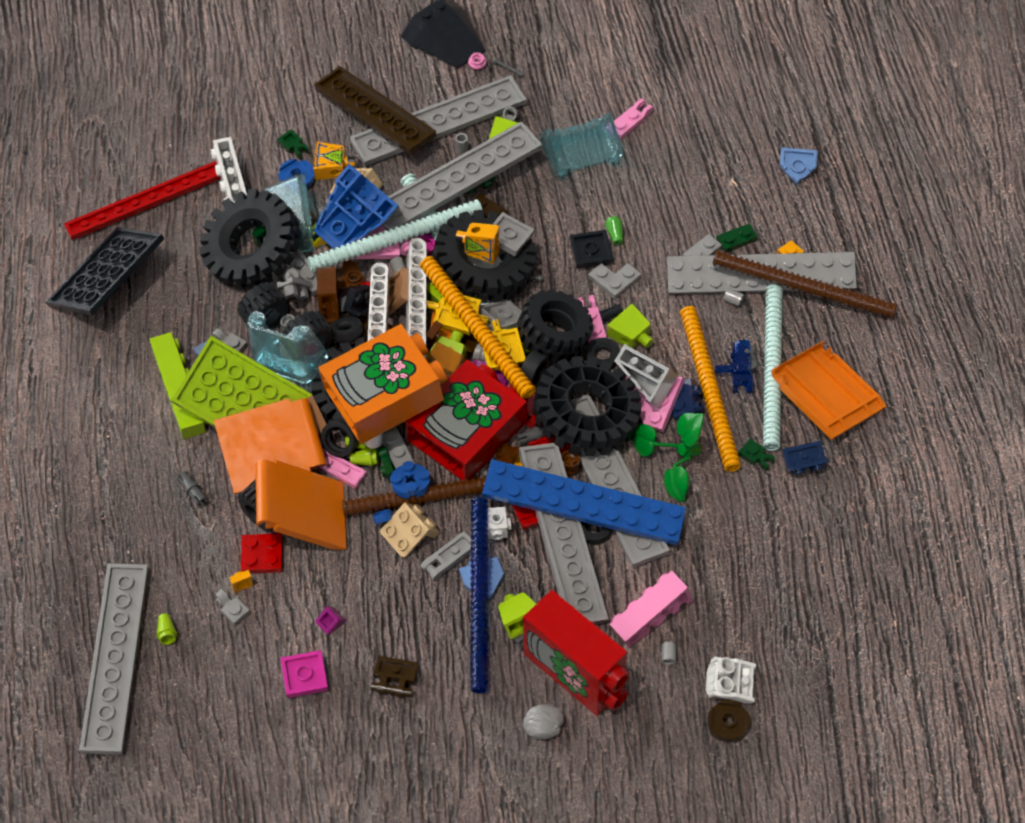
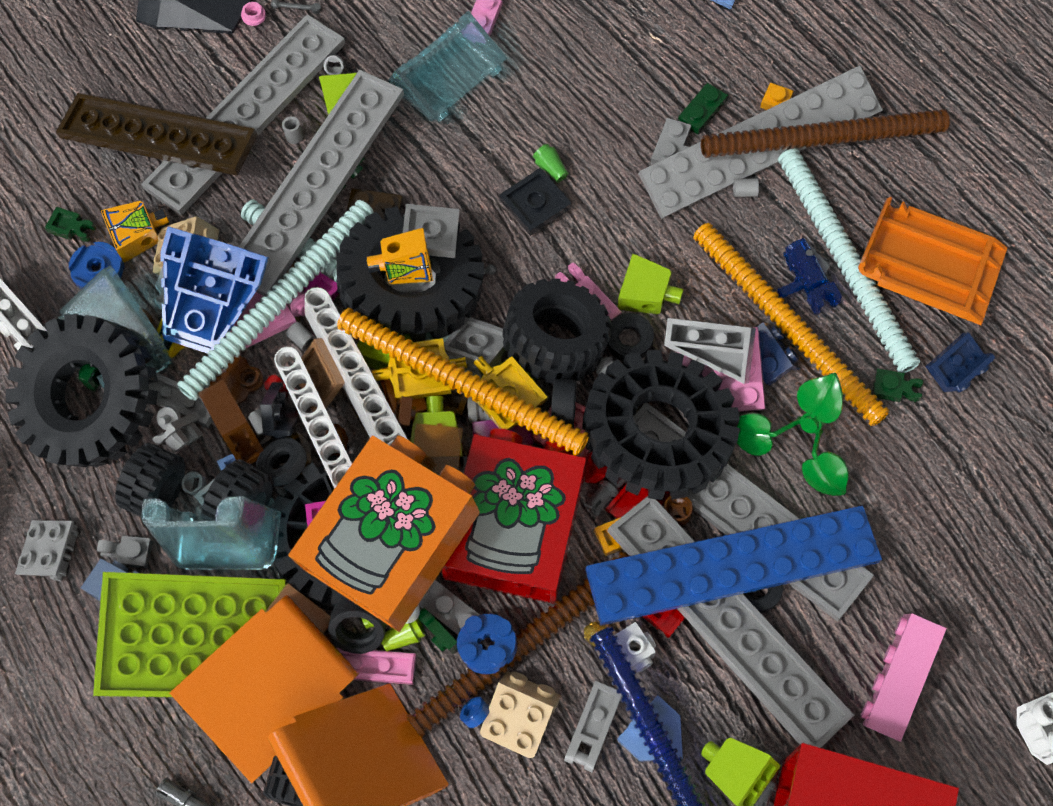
camera: 25 degrees left, 10 degrees up
(173, 373) = (74, 641): lime brick -> none
(185, 321) = (46, 549): none -> light grey hinge
(506, 453) = (589, 546): reddish brown plate -> none
(611, 312) = (609, 275): black pin -> none
(615, 283) = (586, 234): light grey plate -> none
(668, 653) = (956, 724): light grey hinge -> none

